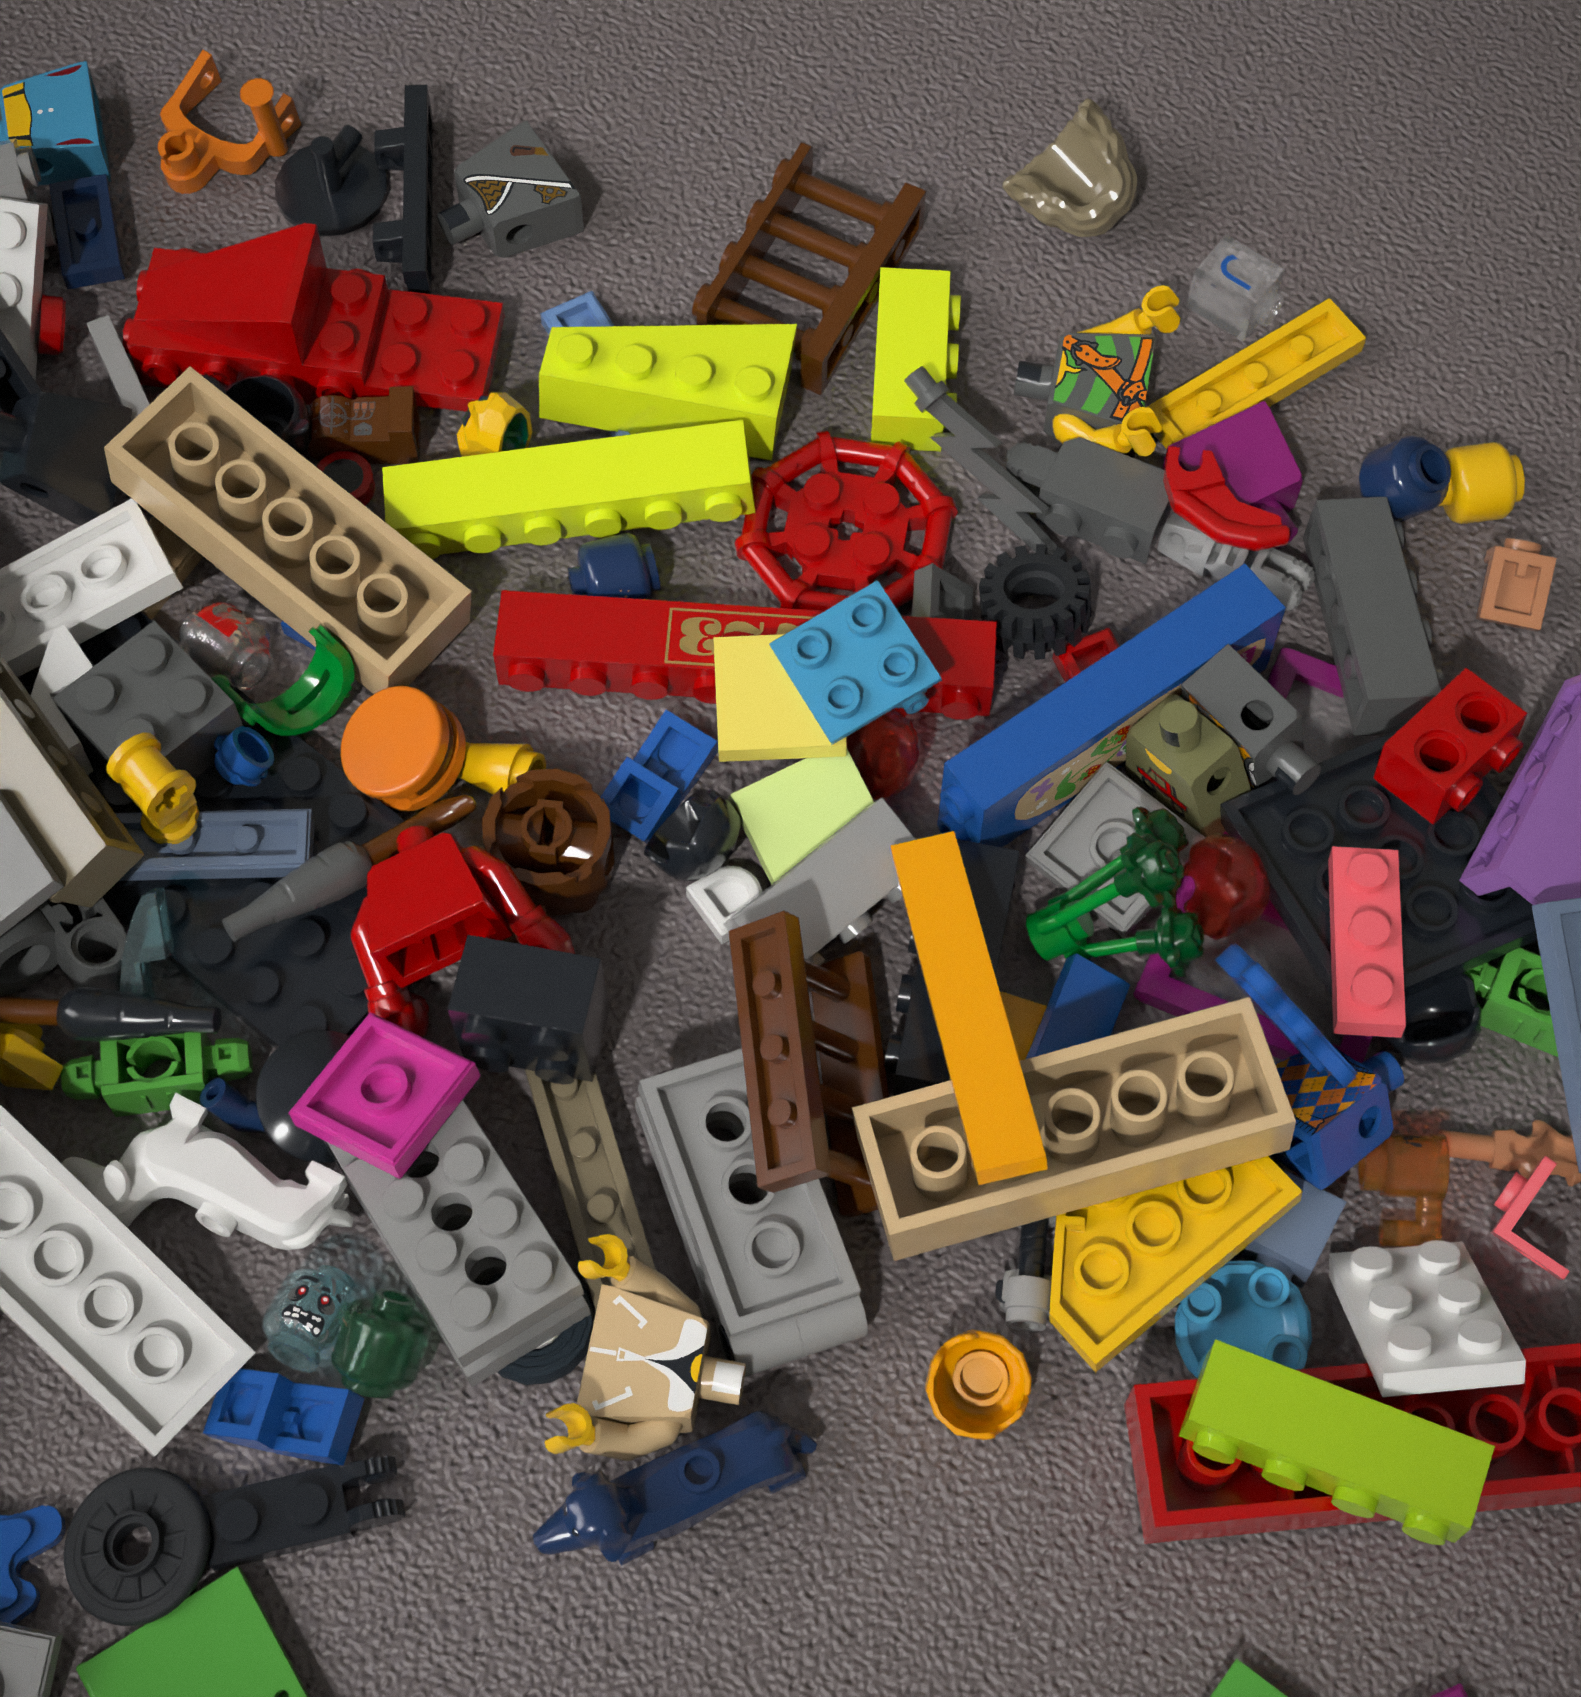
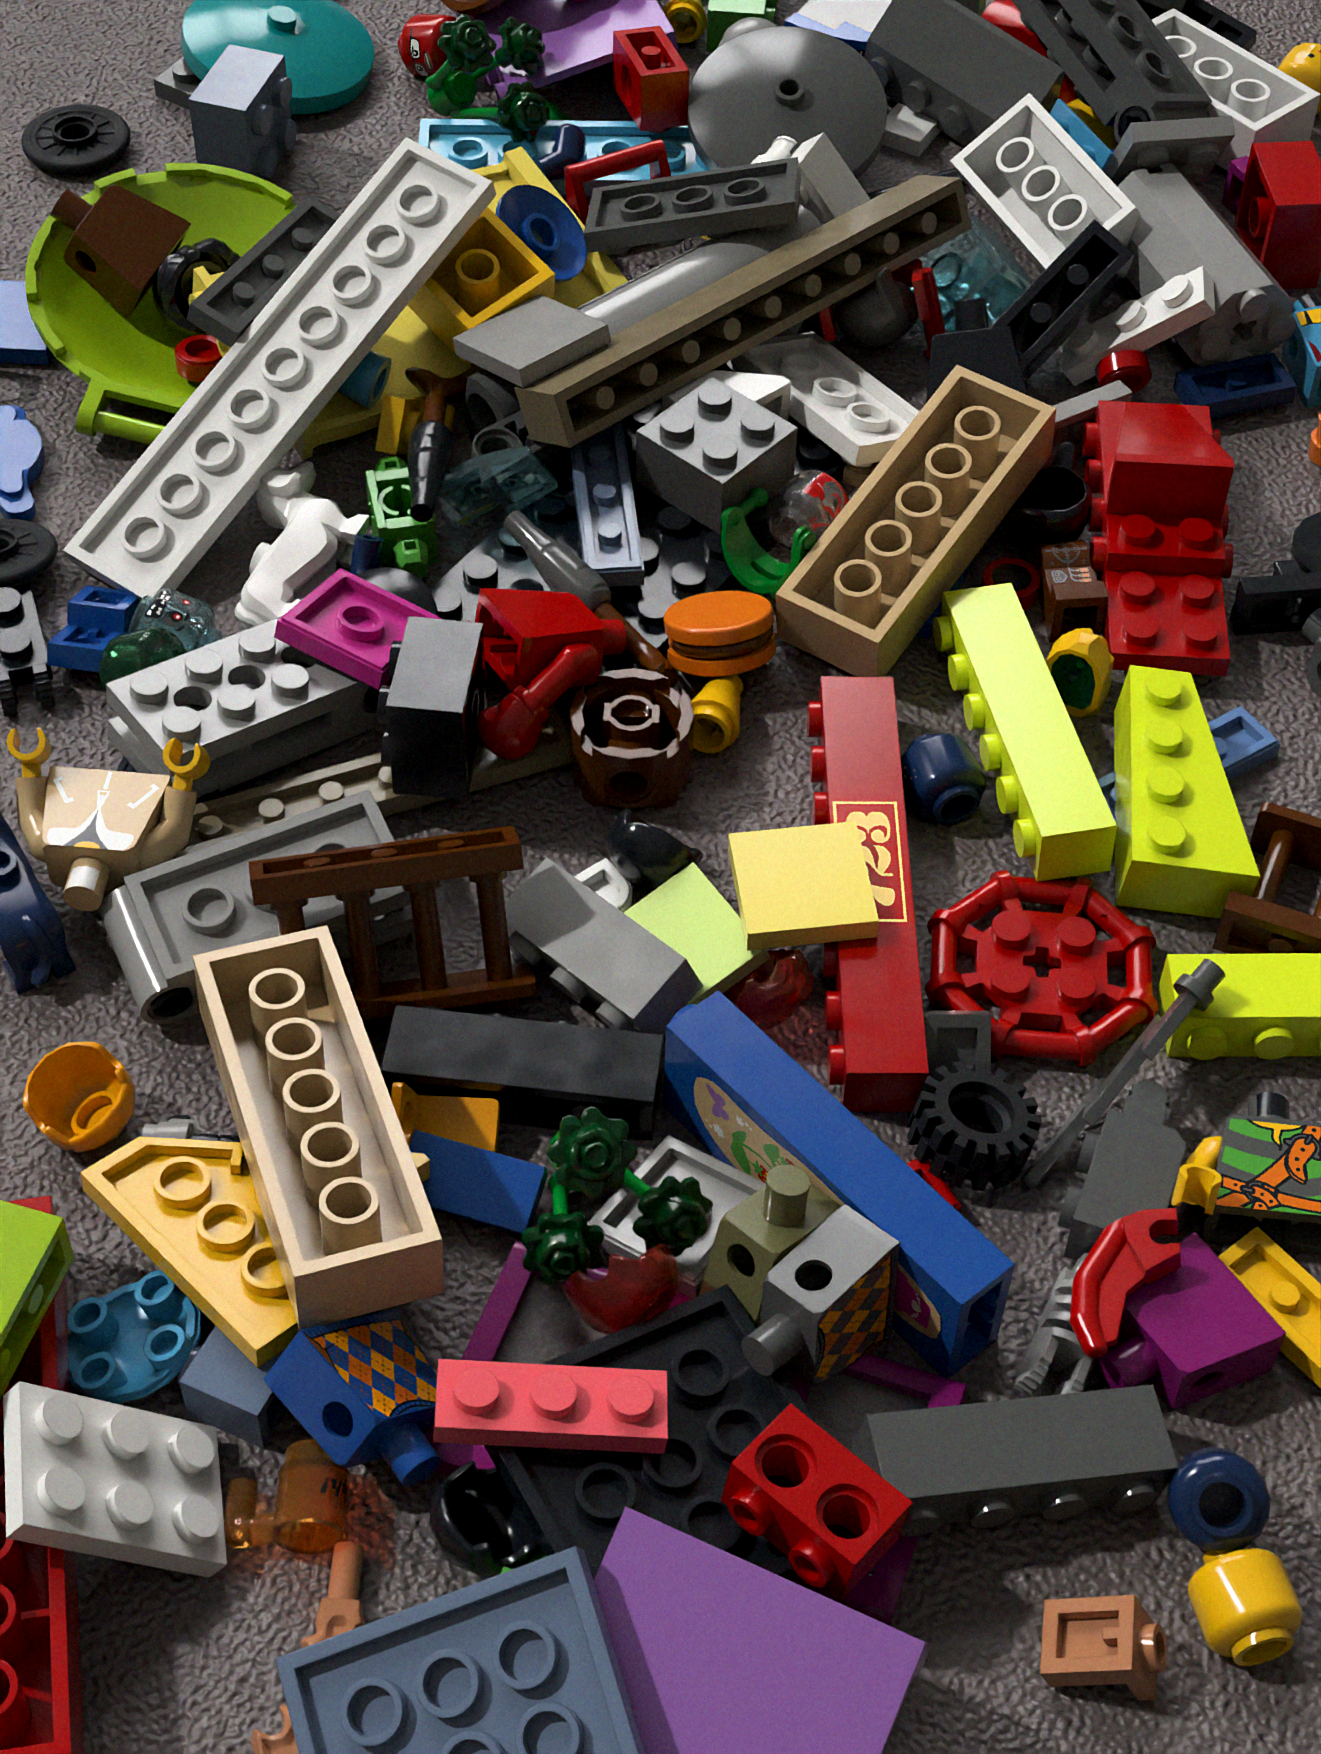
camera: 85 degrees right, 15 degrees down
(156, 788) = (621, 437): yellow connector -> none
(243, 756) = (702, 519): blue plate -> none
(659, 776) = (706, 817): blue slope -> none
(856, 663) = (839, 932): dark azure hinge -> none
(968, 1010) = (434, 1007): light orange tile -> none
(1284, 1014) = (467, 1309): blue tile -> none
(1513, 1202) = (235, 1605): coral bracket -> none

